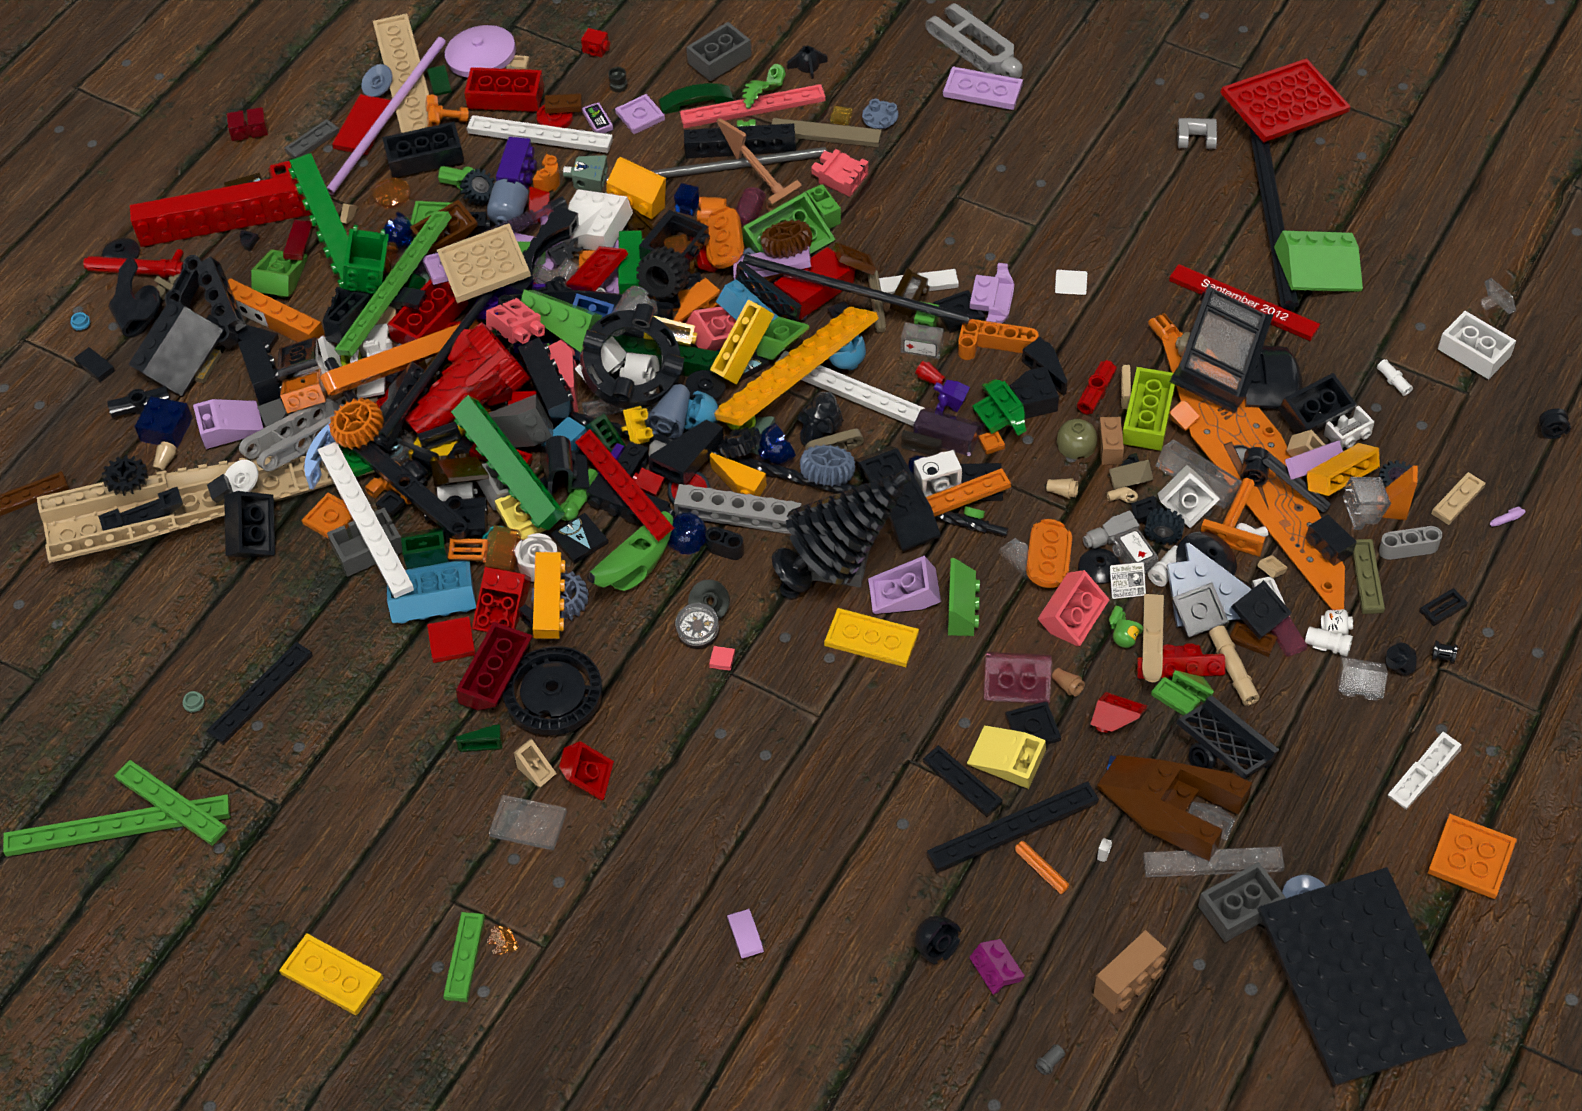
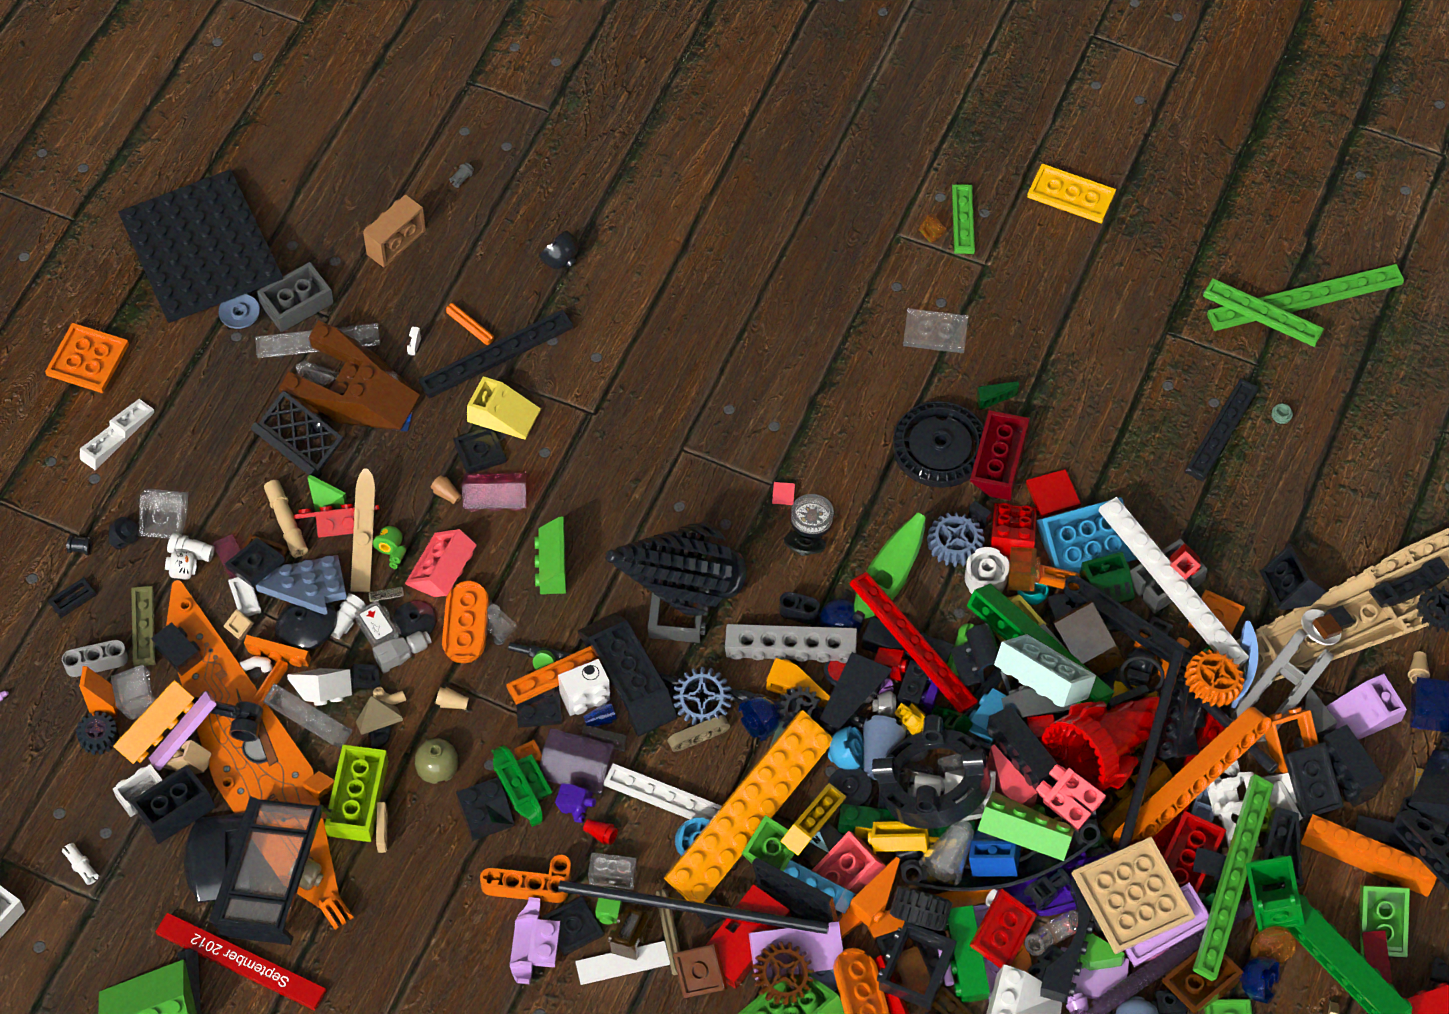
camera: 170 degrees right, 5 degrees up
(235, 473) = (1327, 626): none -> reddish brown tile
(347, 529) = (1185, 561): none -> red brick
(510, 415) = (1045, 670): none -> light aqua brick
(533, 763) = (942, 375): tan slope -> none
(547, 595) = (963, 514): light orange brick -> none
(579, 538) = (949, 609): black tile -> none
(586, 768) = (893, 371): red slope -> none
(745, 933) = (725, 250): lavender slope -> none
(820, 417) = (716, 760): black head -> none
(871, 637) = (630, 522): yellow tile -> none
(905, 587) = (599, 577): lavender slope -> none
(962, 781) = (544, 395): black tile -> none
(996, 965) = (506, 240): magenta bracket -> none
(1042, 354) = (472, 853): black slope -> none
(1071, 282) = (442, 981): white sticker -> none
(1096, 387) = (409, 835): red piece -> none
(1111, 440) = (399, 754): medium nougat brick -> none
(1115, 712) = (397, 461): slope -> none
(1164, 526) = (346, 650): black wheel -> none
(1175, 696) = (342, 483): bright green tile -> none
(1199, 610) = (315, 559): tile -> none
(1458, 498) = (35, 721): tan tile -> none

